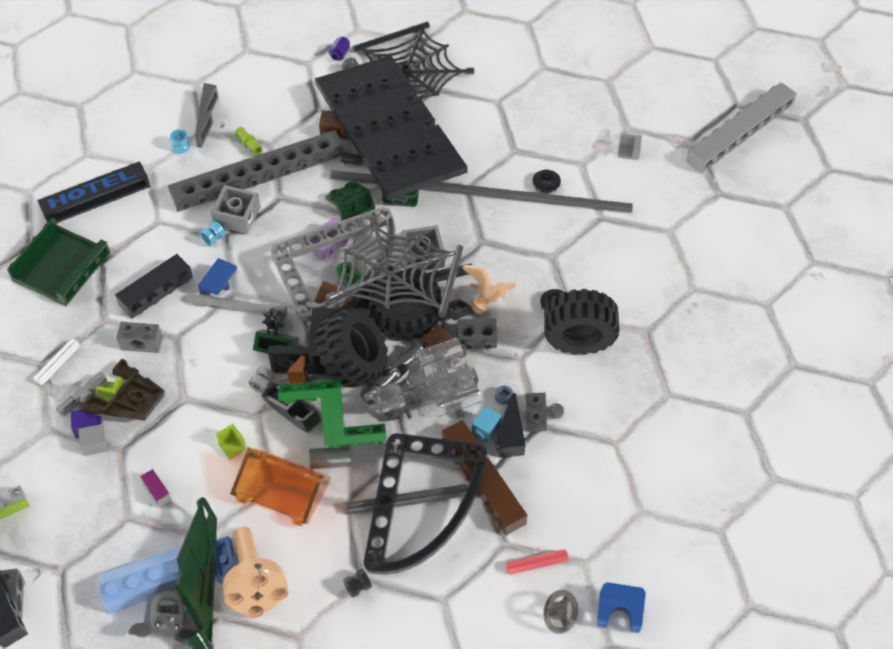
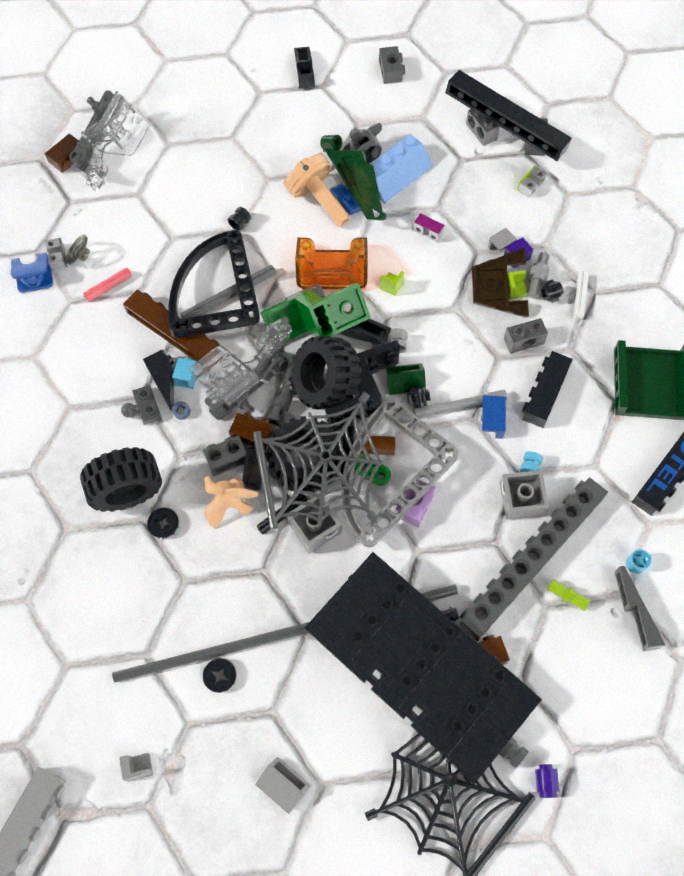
camera: 160 degrees right, 10 degrees up
(82, 370) = (552, 291): none -> black gear
(298, 371) = (363, 341): dark orange slope -> none
(351, 200) = (420, 560): dark green bracket -> none
(524, 105) = (282, 785): none -> light grey brick
(583, 631) = (56, 254): none -> flat silver piece

